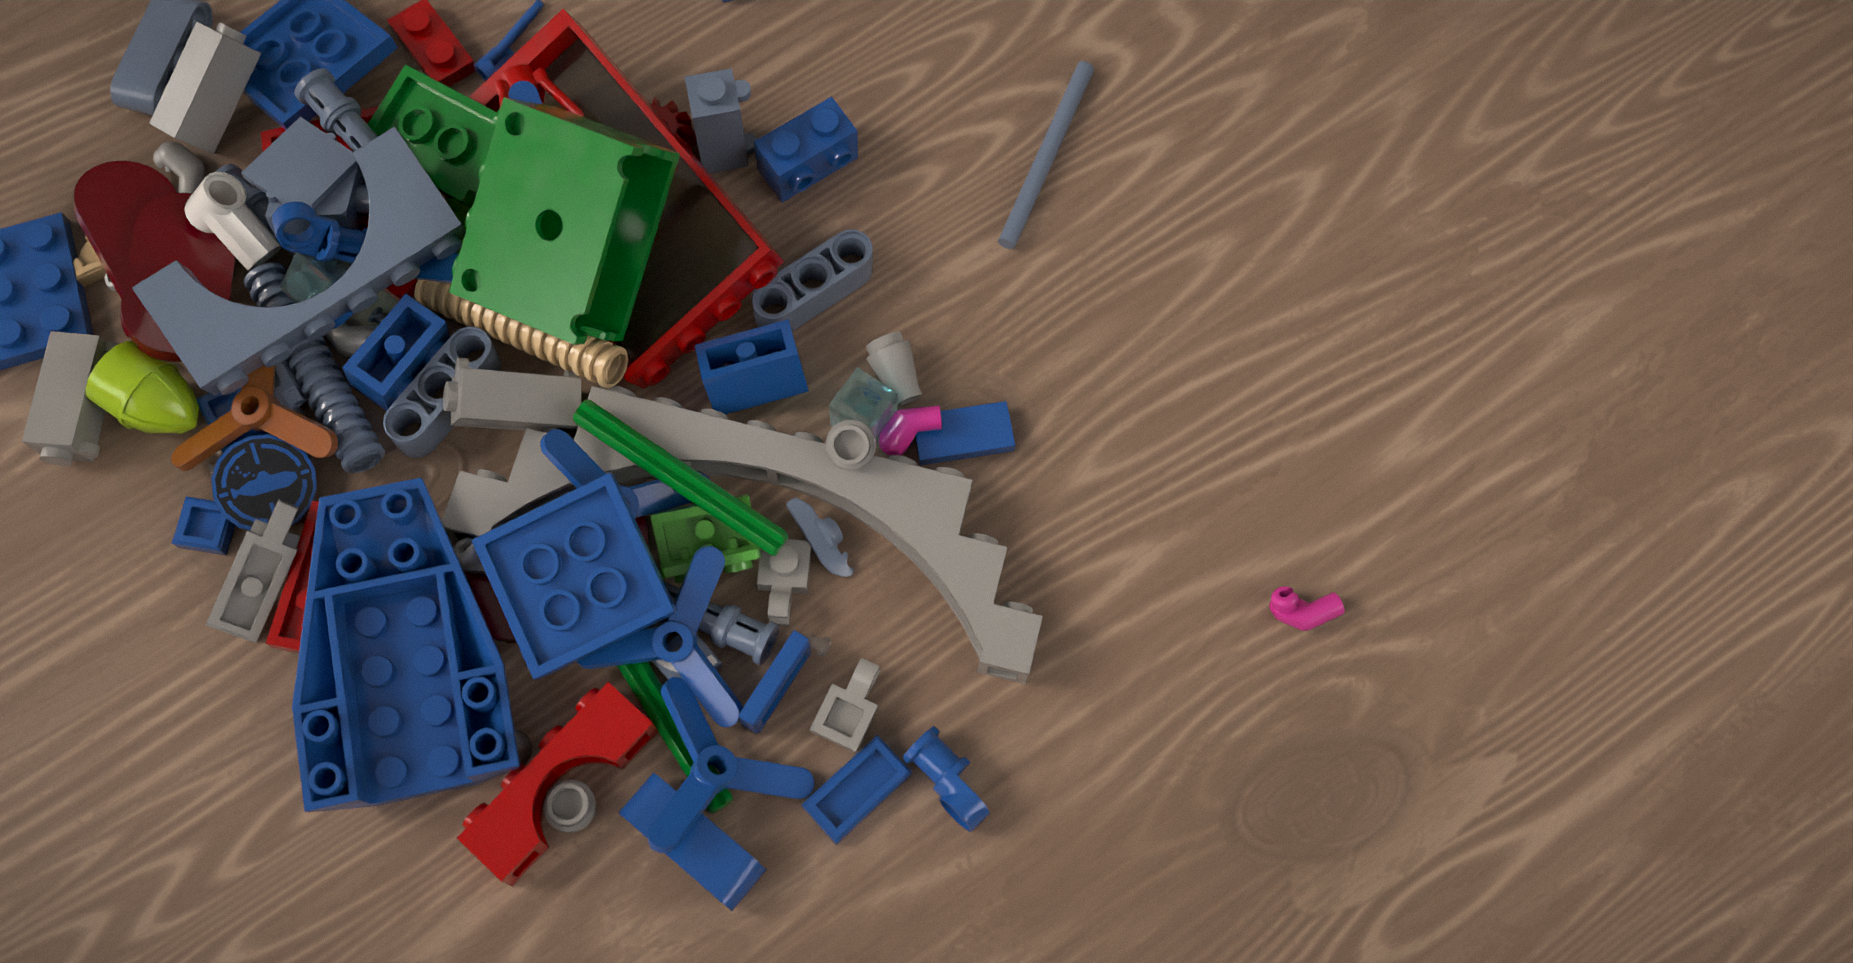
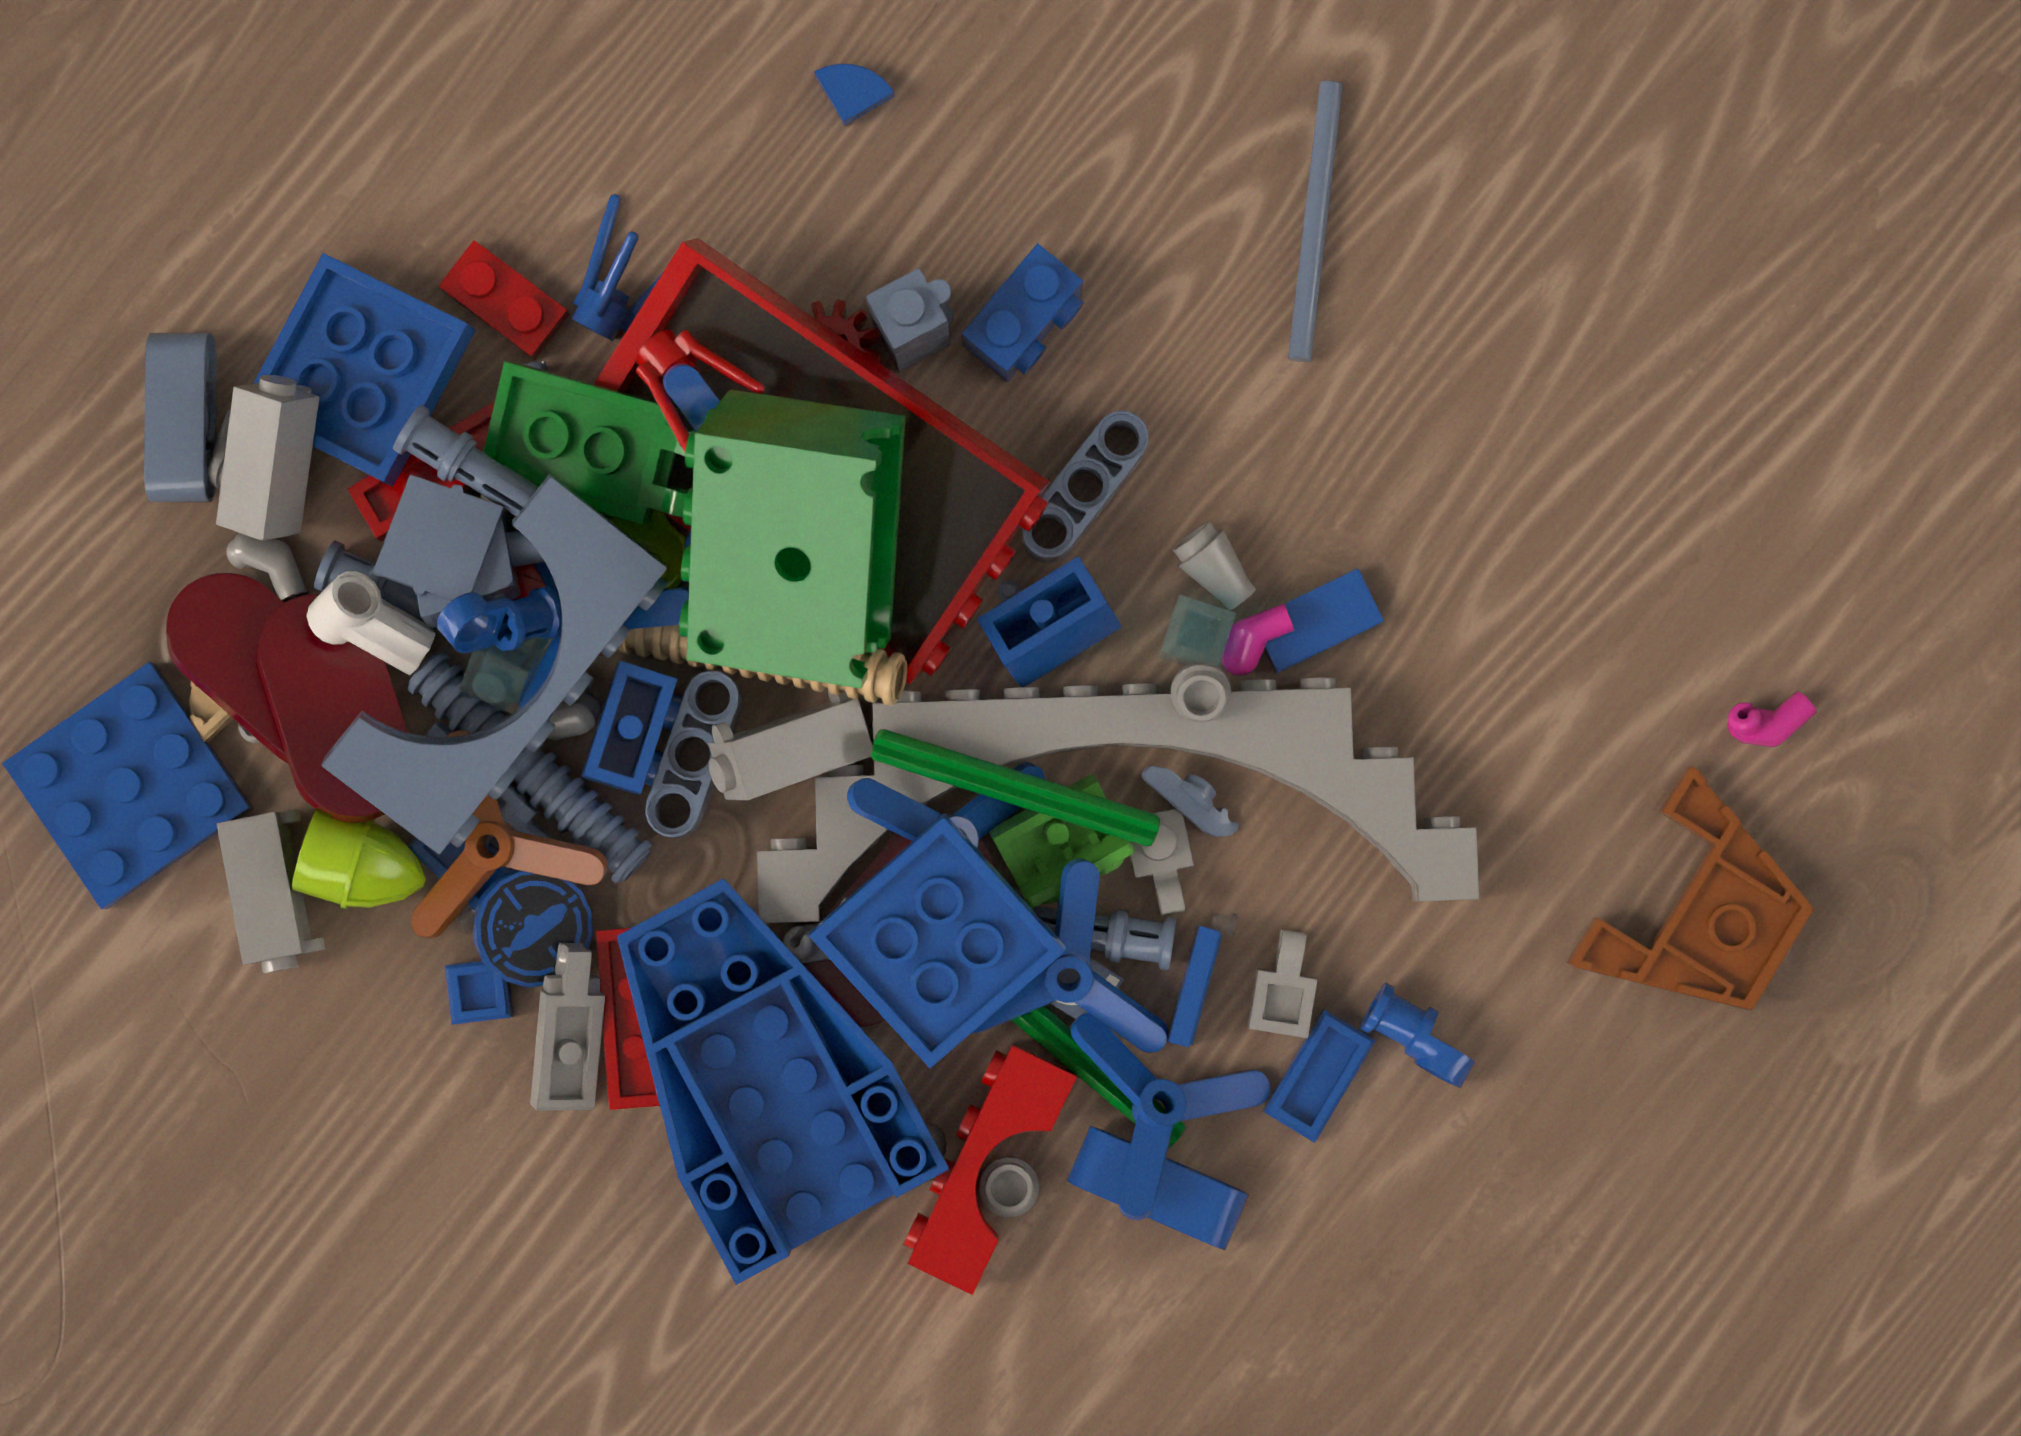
camera: 10 degrees left, 15 degrees up
(1228, 762) = (1725, 926): none -> dark orange wing

